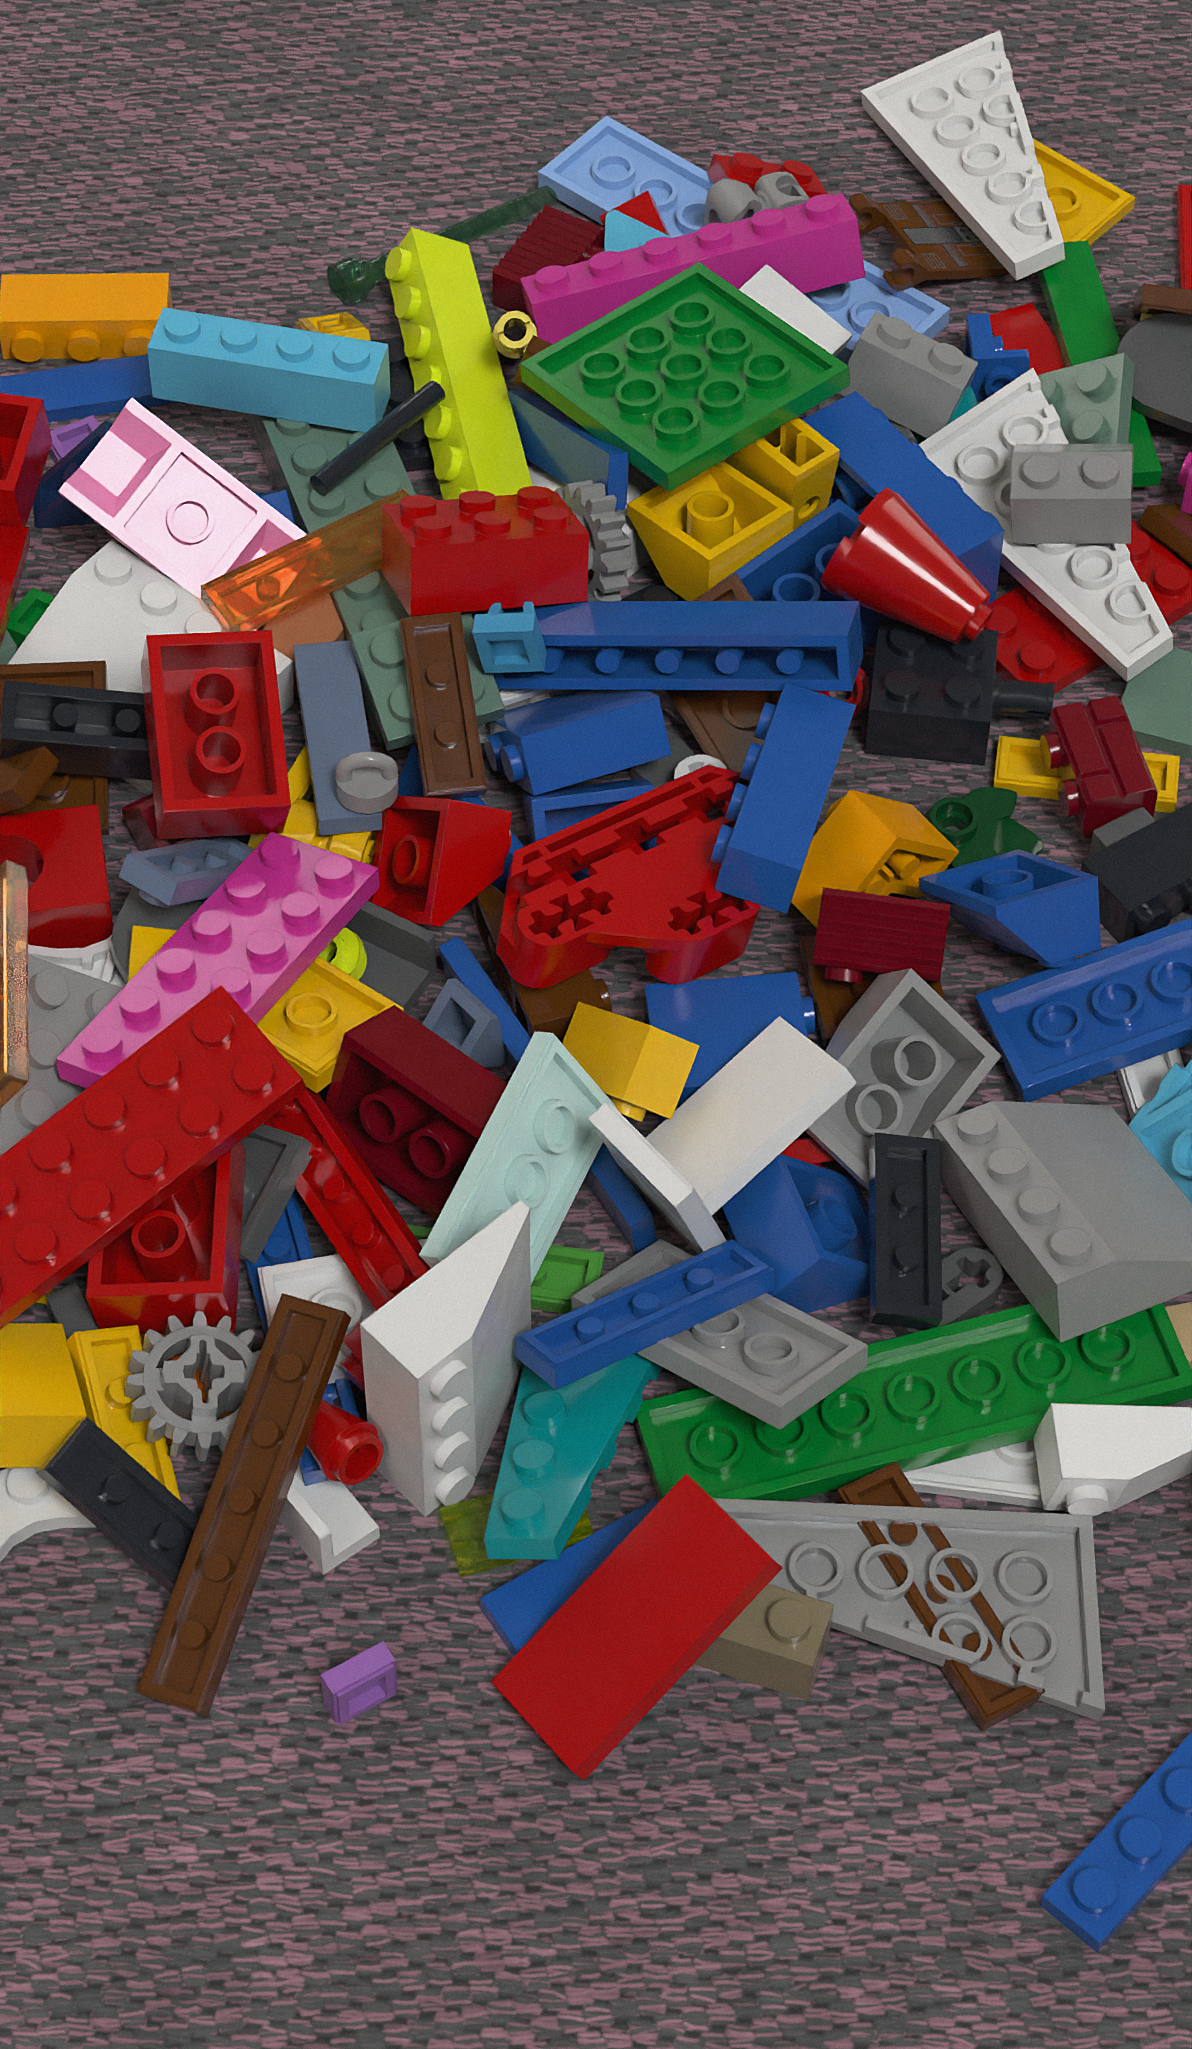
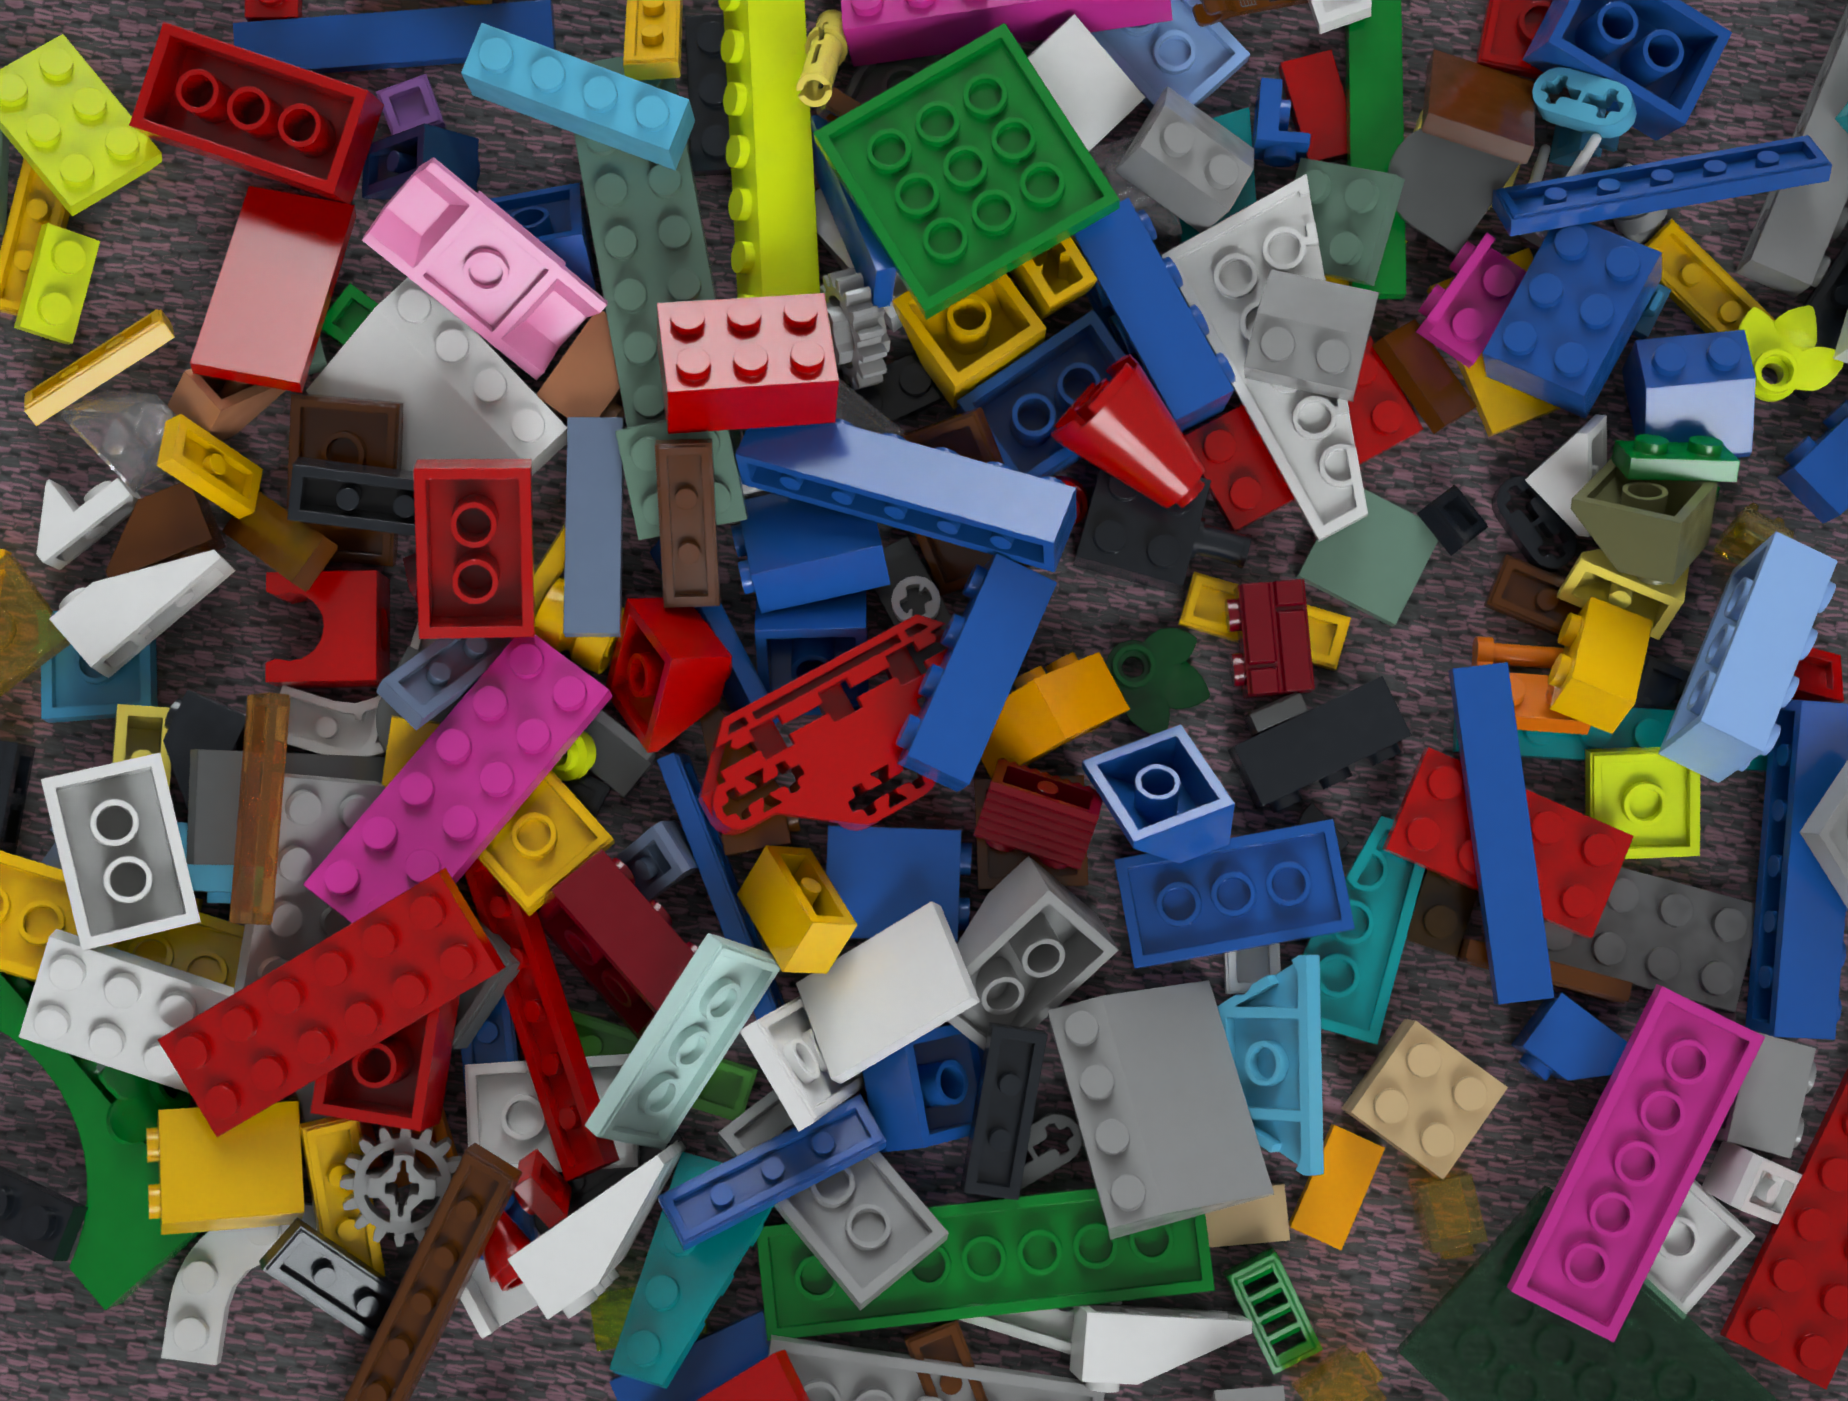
camera: 10 degrees right, 30 degrees up
(299, 570) = (590, 335): clear orange tile -> none
(367, 782) = (609, 603): light grey tile -> none
(377, 438) = (674, 181): black bar -> none
(509, 640) = (752, 474): dark azure tile -> none

